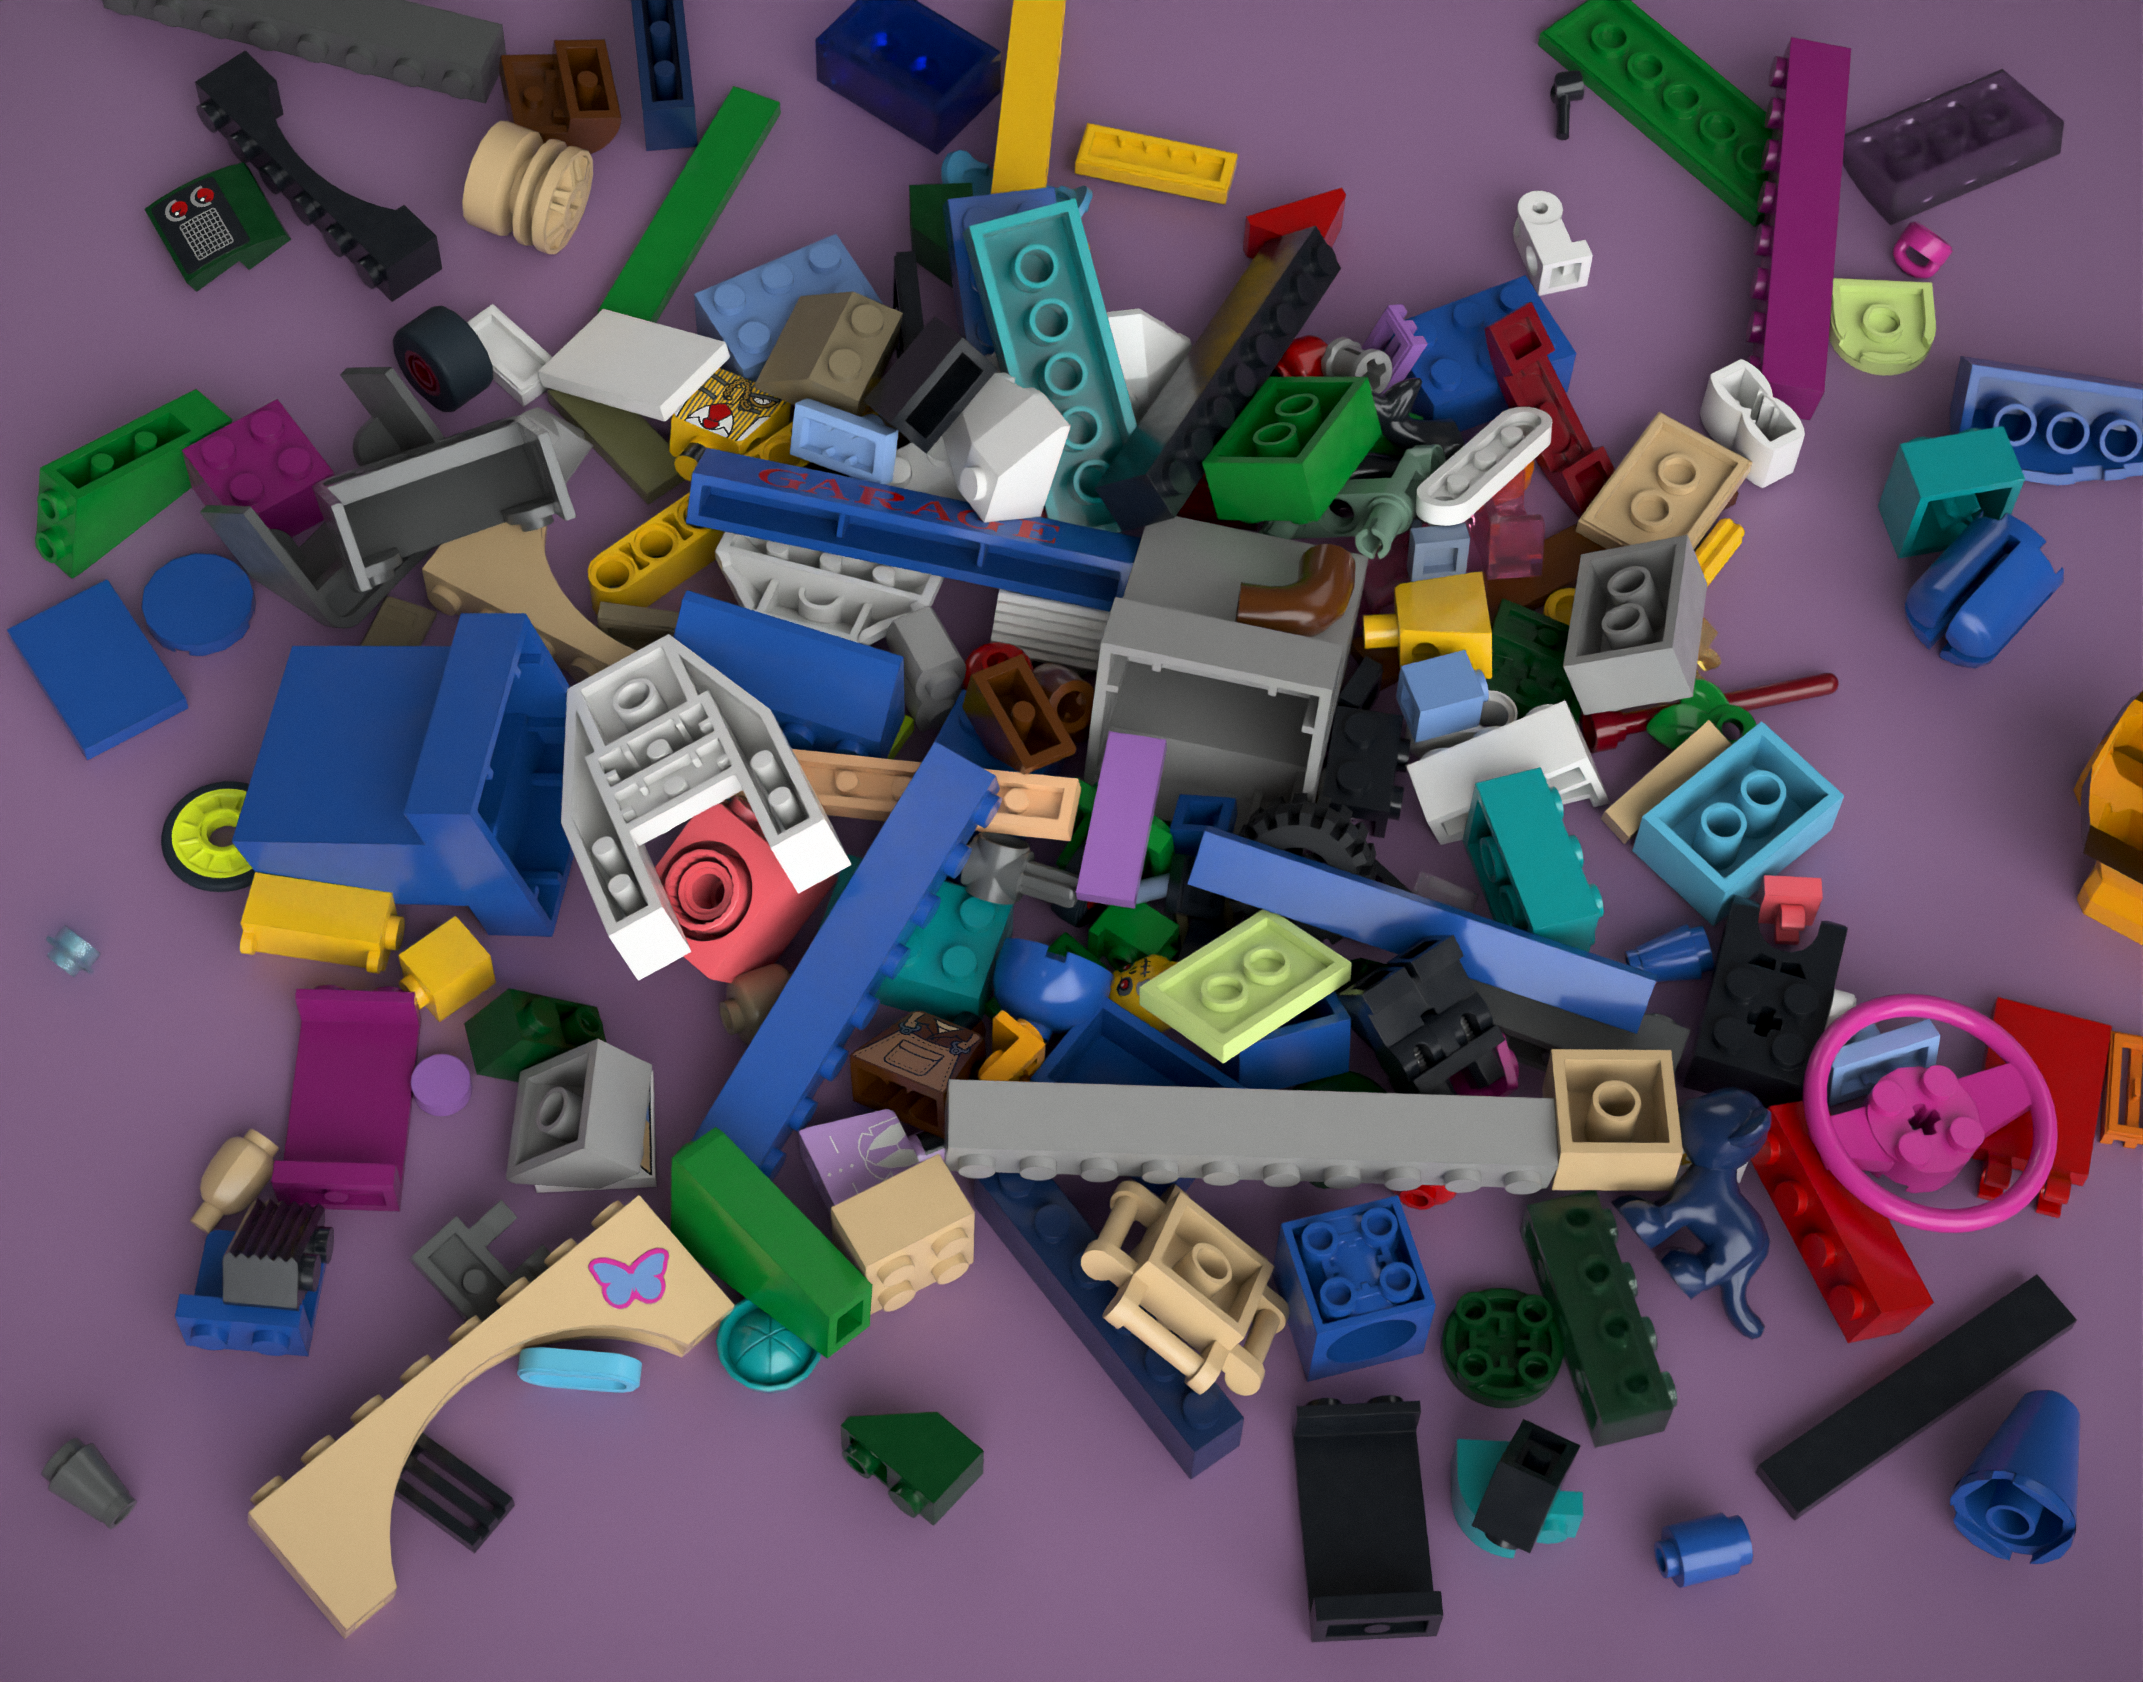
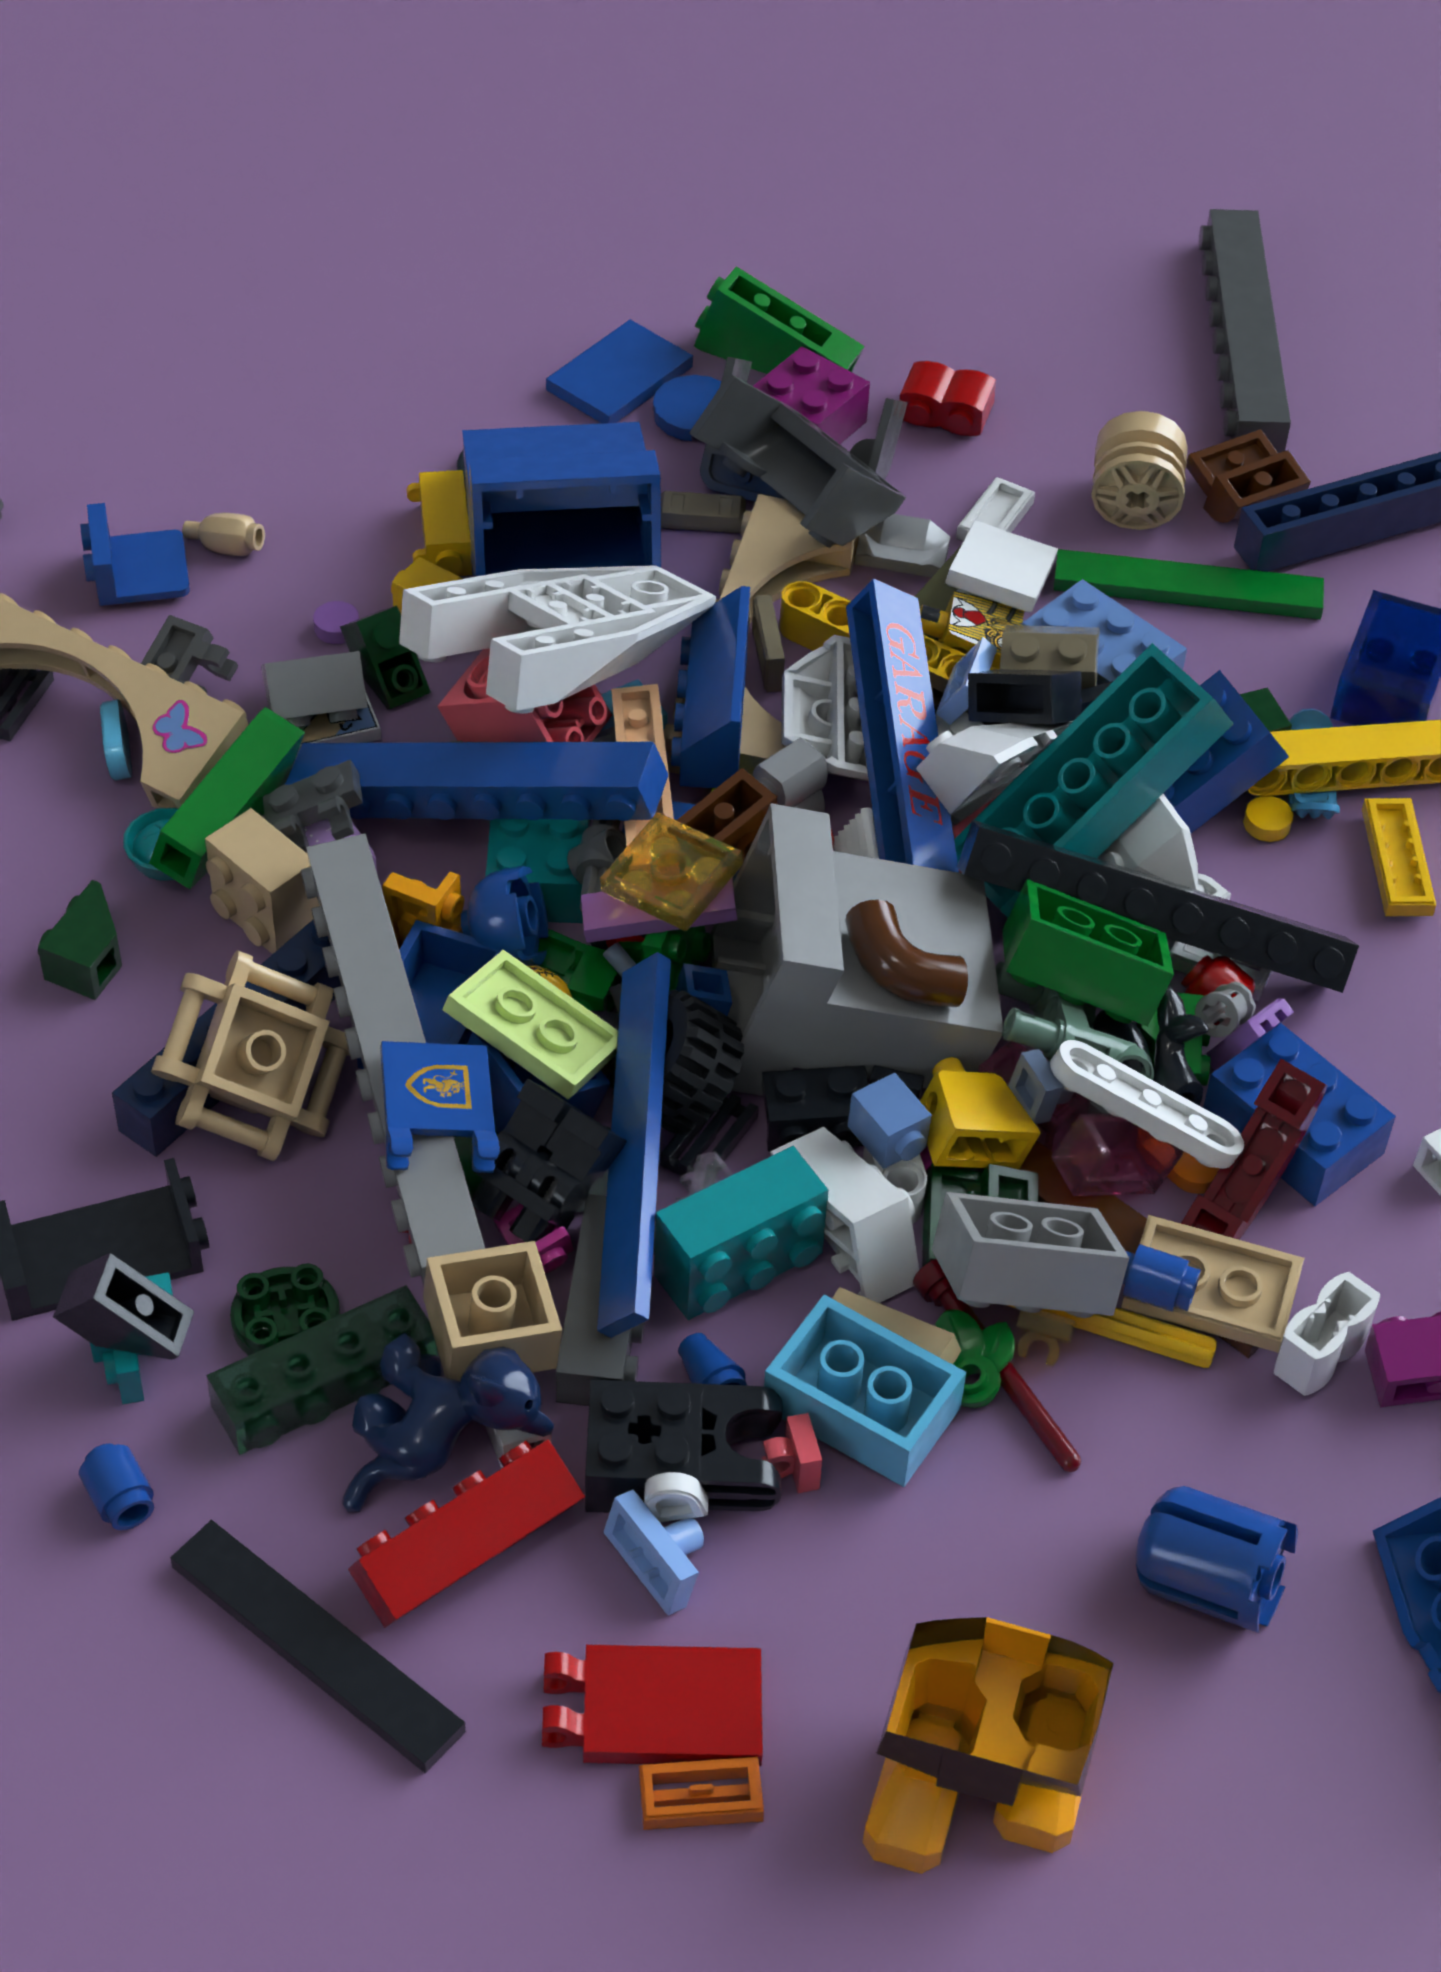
camera: 75 degrees right, 10 degrees down
(72, 952) = (381, 413): clear light blue plate -> none
(217, 224) = (1031, 335): slope -> none
(276, 1255) = (148, 542): black brick -> none
(303, 339) = (948, 398): none -> red brick
(350, 1099) = (298, 582): magenta panel -> none
(384, 244) = (1140, 322): black arch -> none
(443, 358) = (960, 468): black wheel -> none
(807, 1147) = (314, 799): none -> dark grey plate
(912, 1064) = (423, 855): torso -> none
(1108, 782) = (671, 871): none -> clear yellow plate
(1321, 210) = (1381, 968): red slope -> none
(1353, 1094) = (437, 1093): none -> blue flag
(1353, 1288) = (292, 1175): blue brick -> none
(1686, 514) = (1160, 1279): none -> blue brick
(1945, 484) = (1326, 1494): teal brick -> none
(1949, 1115) = (571, 1554): dark pink piece -> none
(2024, 1482) = (243, 1728): blue cone -> none

